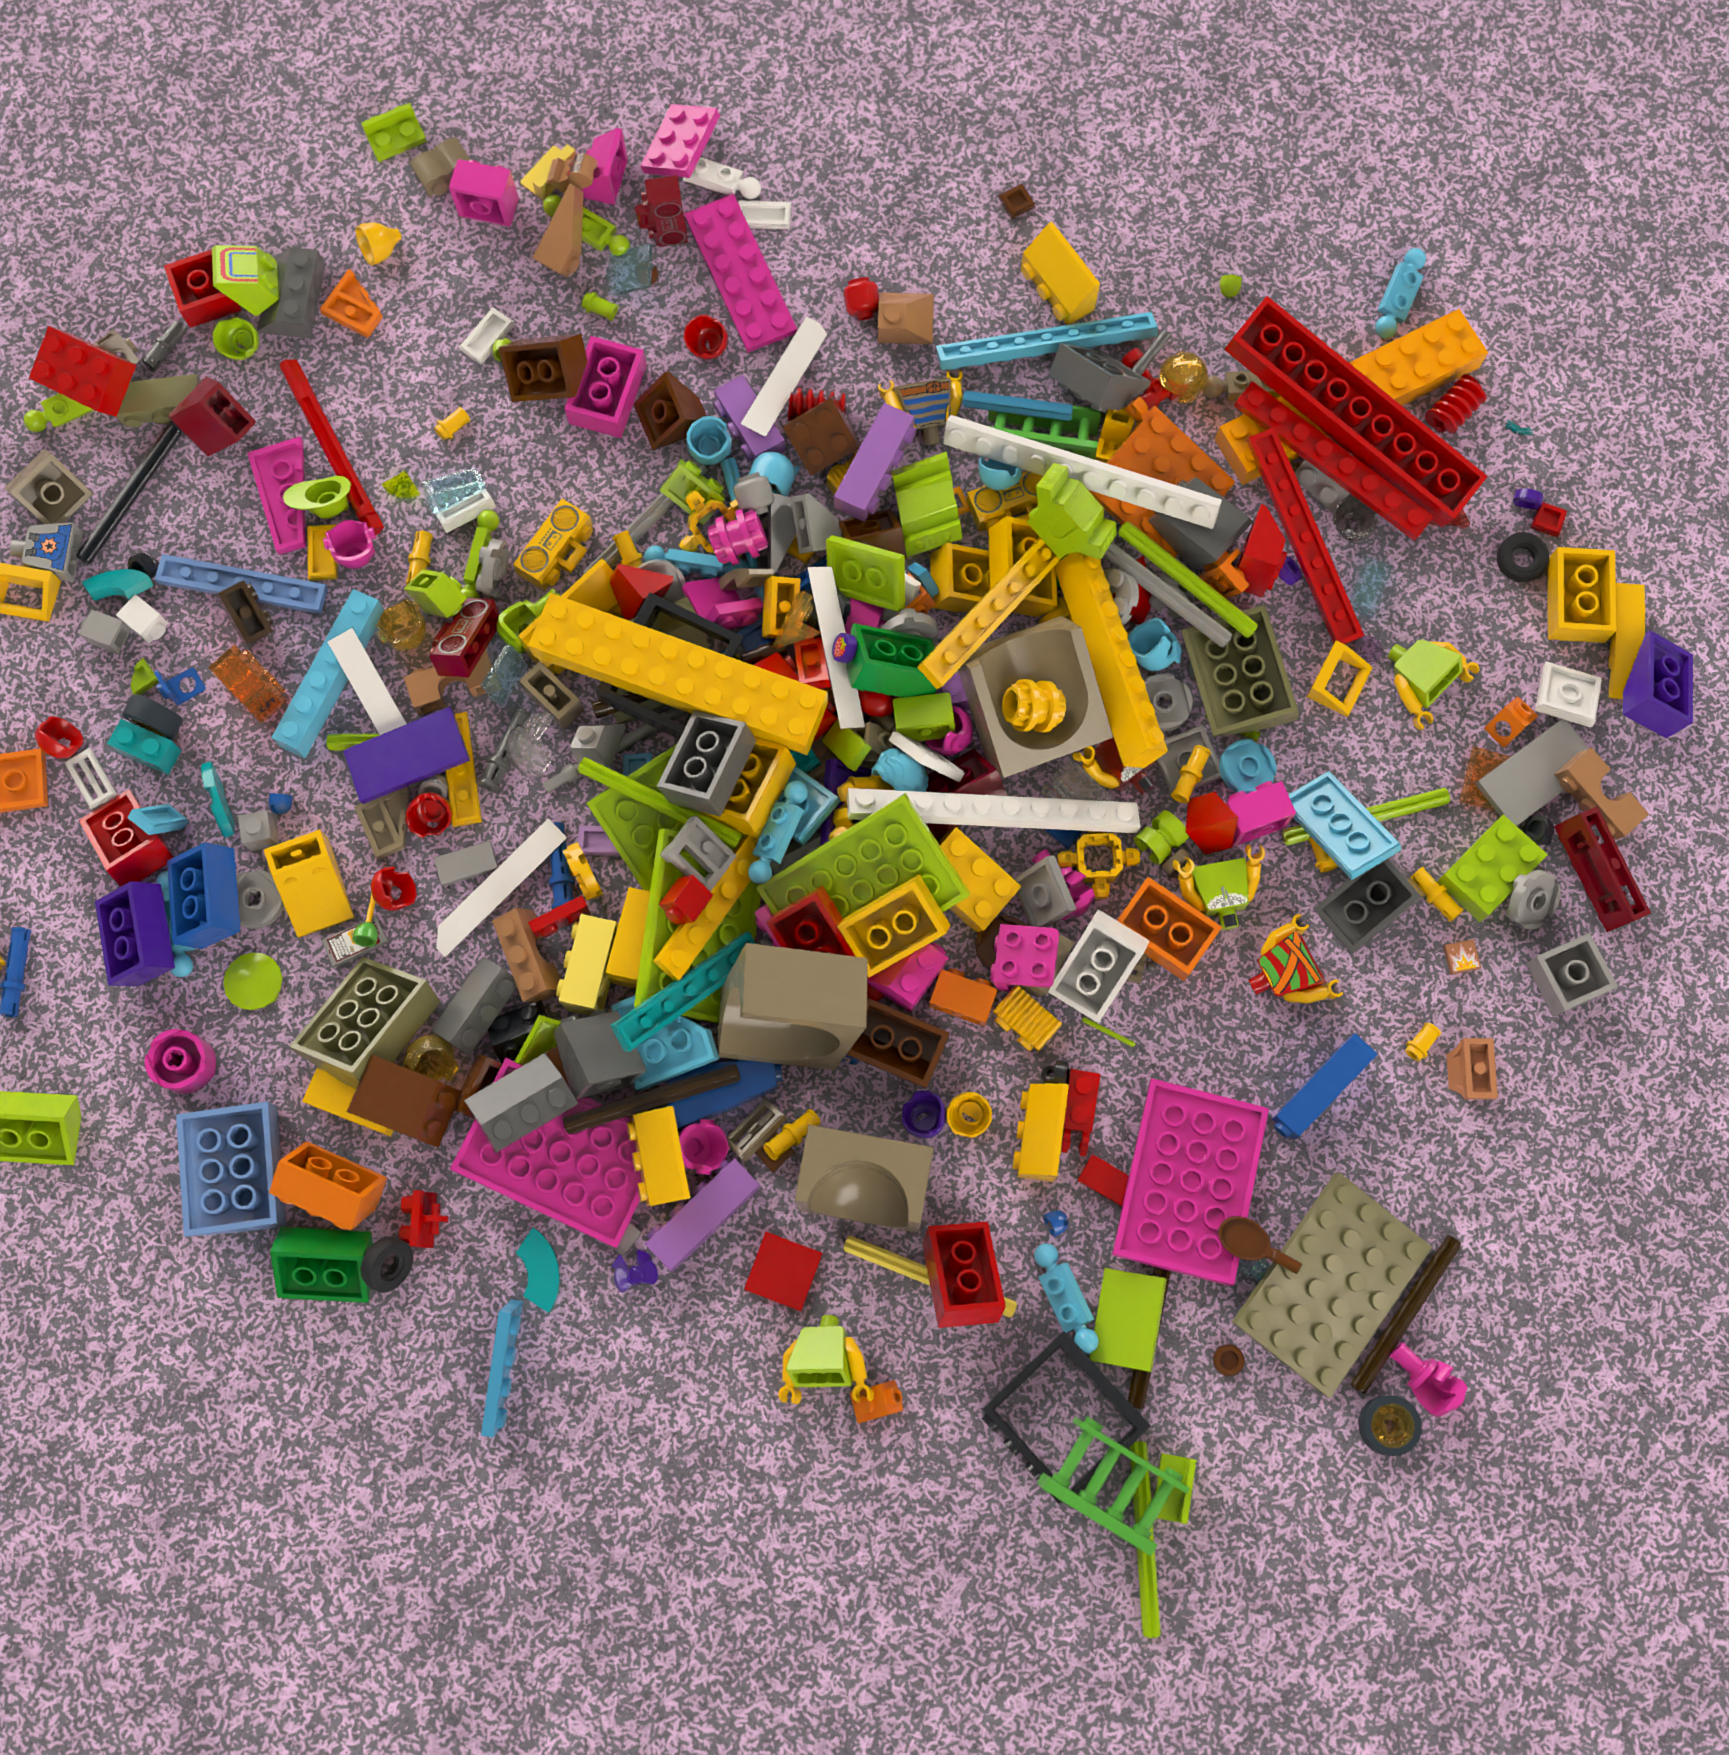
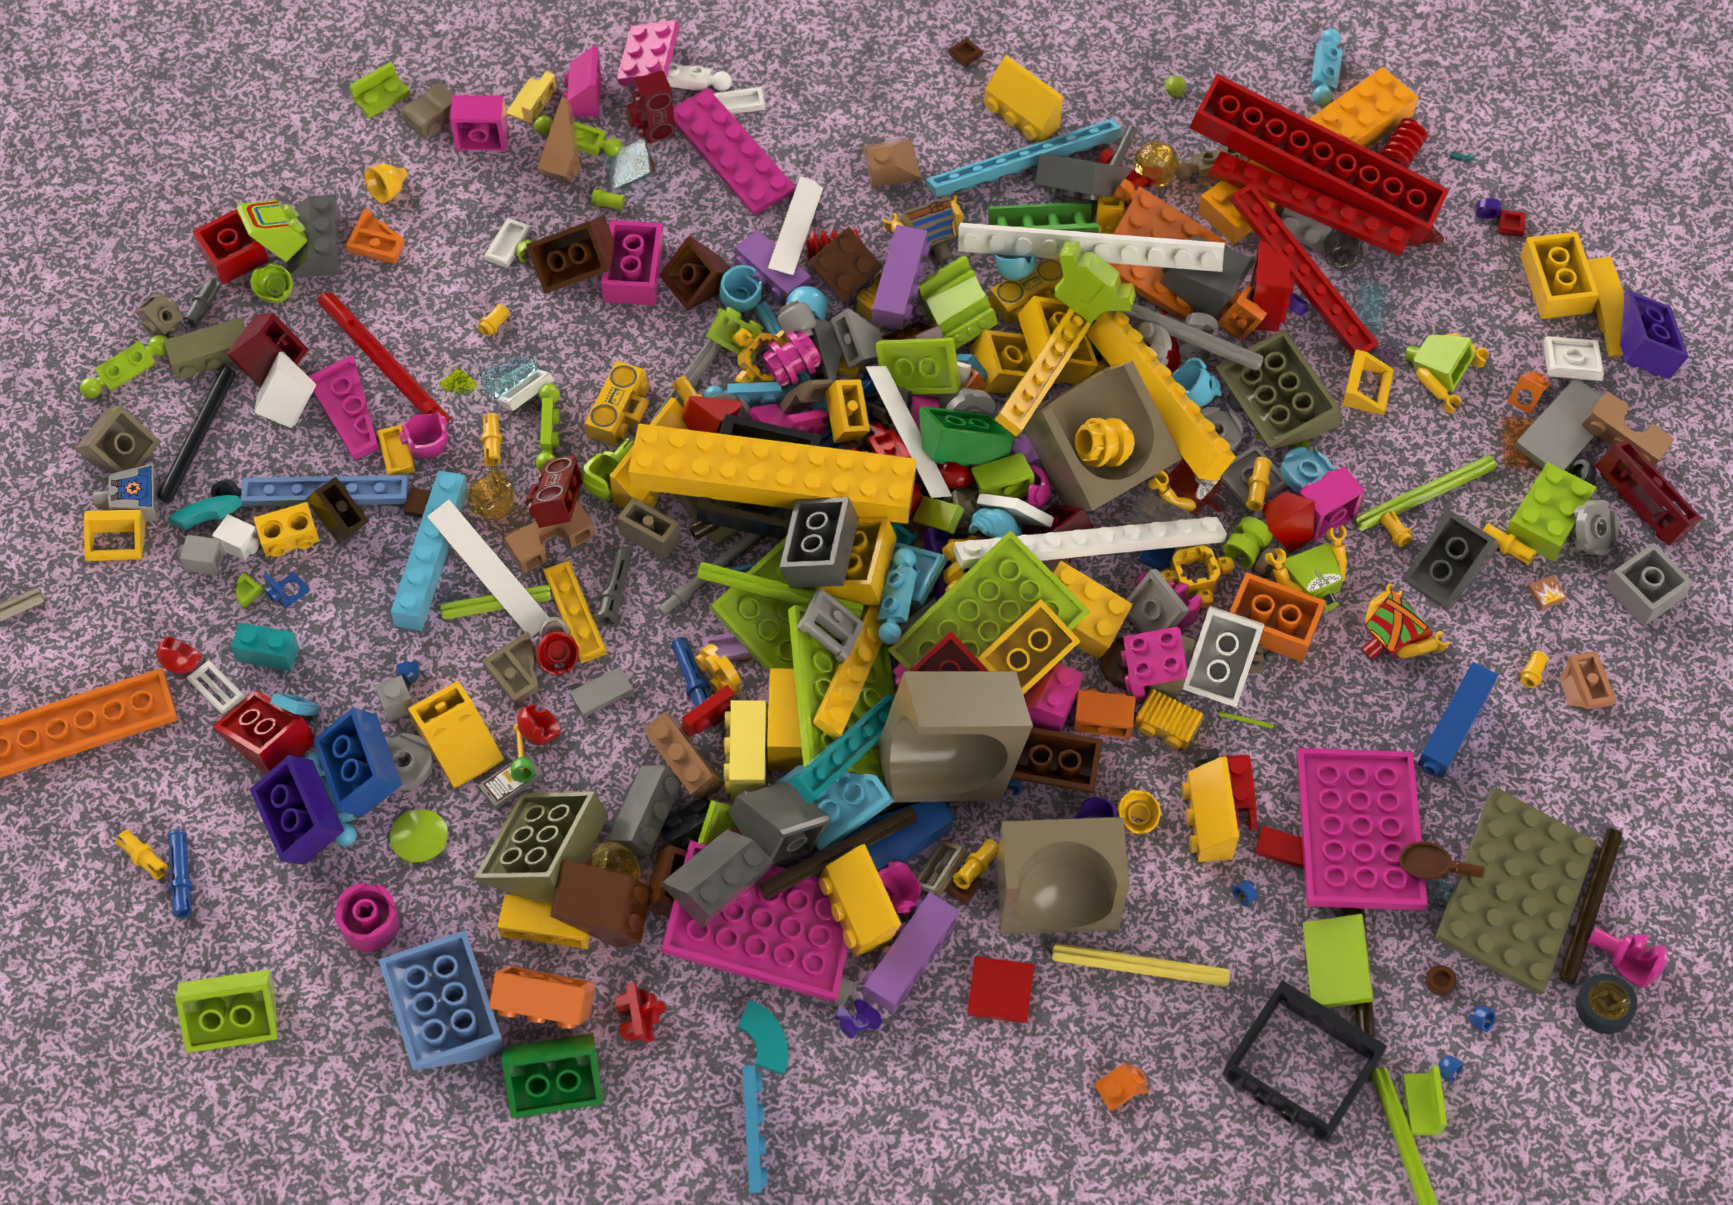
camera: 15 degrees left, 15 degrees down
(82, 371) = (137, 329): red brick -> none
(152, 716) = (268, 613): black wheel -> none
(194, 614) = (285, 525): none -> yellow brick
(219, 805) = (348, 678): teal tile -> none
(220, 467) = (284, 392): none -> white slope
(249, 682) = (356, 570): clear orange brick -> none
(321, 497) = (386, 402): lime piece -> none
(328, 614) = (416, 502): none -> reddish brown tile
(375, 1257) = (605, 1057): black tyre -> none
(406, 755) = (524, 604): dark purple tile -> none
(436, 593) = (519, 459): lime brick -> none
(494, 565) = (567, 429): light grey plate -> none
(498, 886) = (637, 705): white sticker -> none
(504, 675) = (600, 519): clear light blue piece -> none
(525, 750) = (636, 578): clear brick -> none
(574, 171) = (566, 86): medium nougat leg -> none
(597, 742) = (706, 551): light grey slope -> none
(685, 900) = (830, 663): red brick -> none
(703, 329) = (714, 200): red hair -> none
(792, 628) = (867, 419): clear yellow slope -> none
(823, 1359) = (1063, 1052): lime torso -> none
(844, 648) = (918, 427): dark purple tile -> none
(861, 298) = (848, 151): red head -> none
(963, 1274) = (1174, 947): red brick -> none
(1017, 405) = (1015, 211): dark azure axle -> none
(1066, 1297) = (1274, 953): medium azure plate -> none
(1085, 1501) = (1346, 1121): bright green fence -> none
(1188, 579) = (1210, 320): lime axle -> none
(1209, 1456) = (1448, 1066): none -> blue hinge
(1259, 1407) = (1479, 1016): none -> blue hinge
(1342, 825) = (1409, 499): medium azure tile -> none
(1529, 542) = (1502, 244): black tyre -> none

